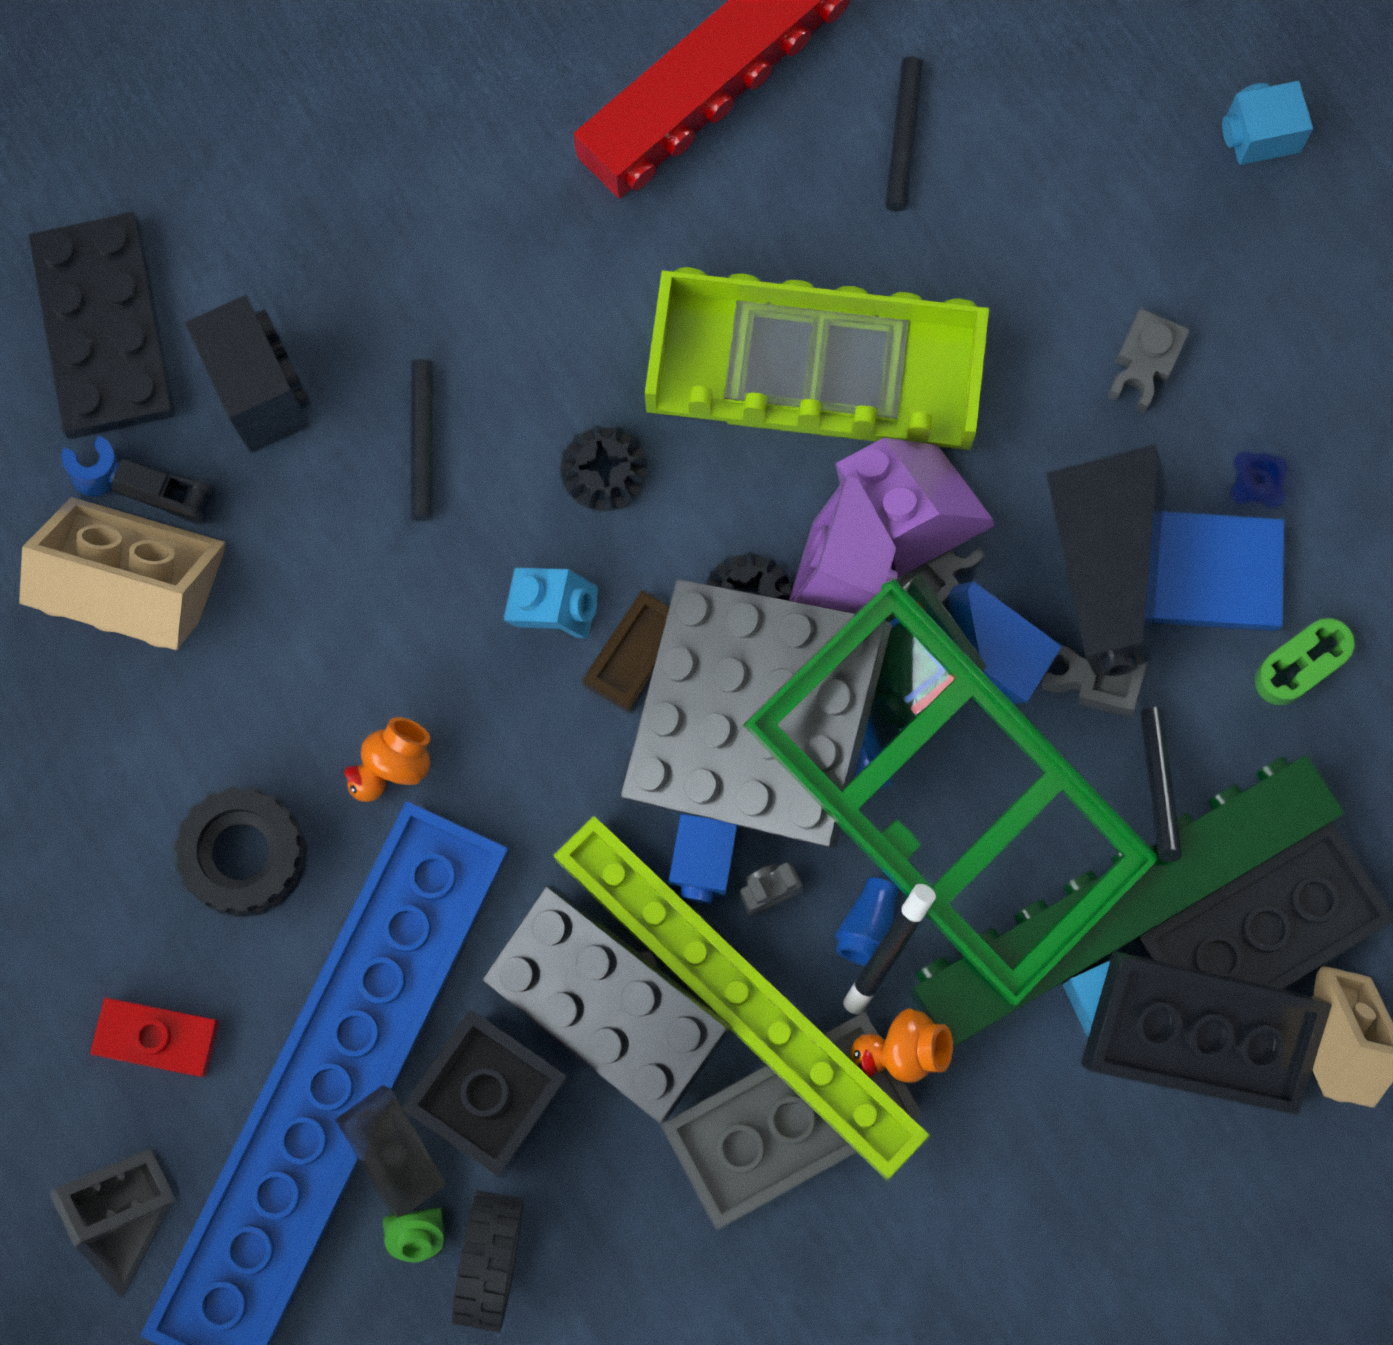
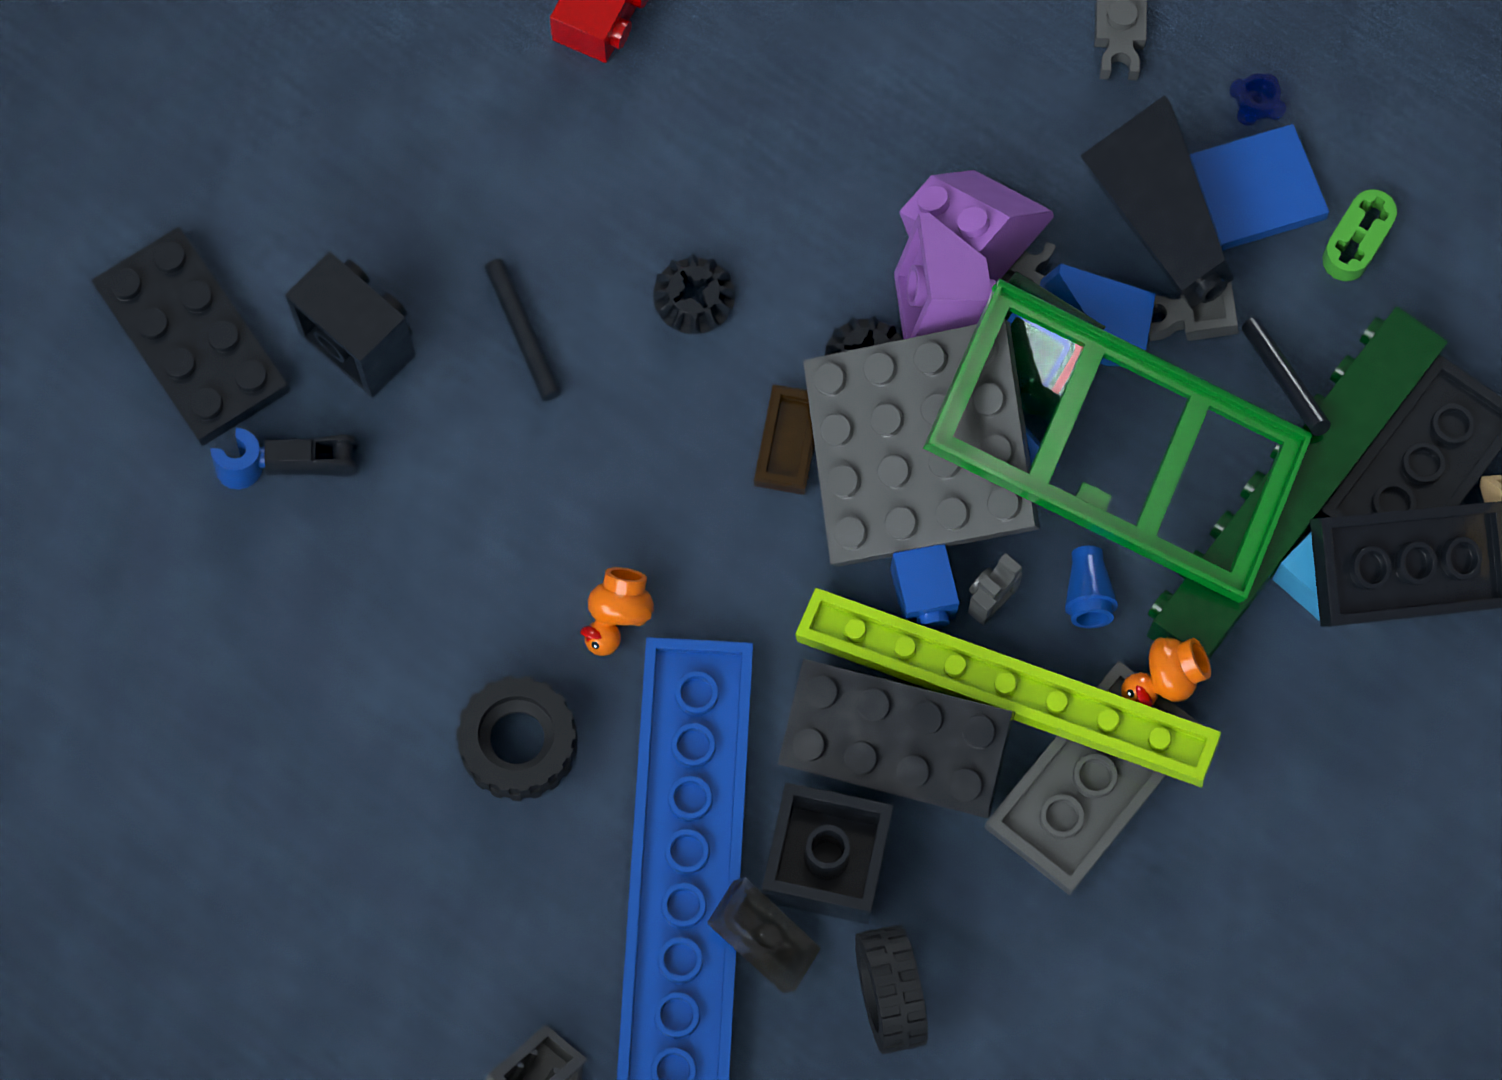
camera: 25 degrees left, 5 degrees down
(120, 572) = (305, 541): tan slope -> none
(155, 1037) = (508, 927): red plate -> none
(415, 1235) = (811, 1002): bright green plate -> none
(551, 601) = (697, 422): dark azure bracket -> none
(816, 359) = (841, 134): lime window -> none
(889, 948) = (1120, 595): black bar -> none

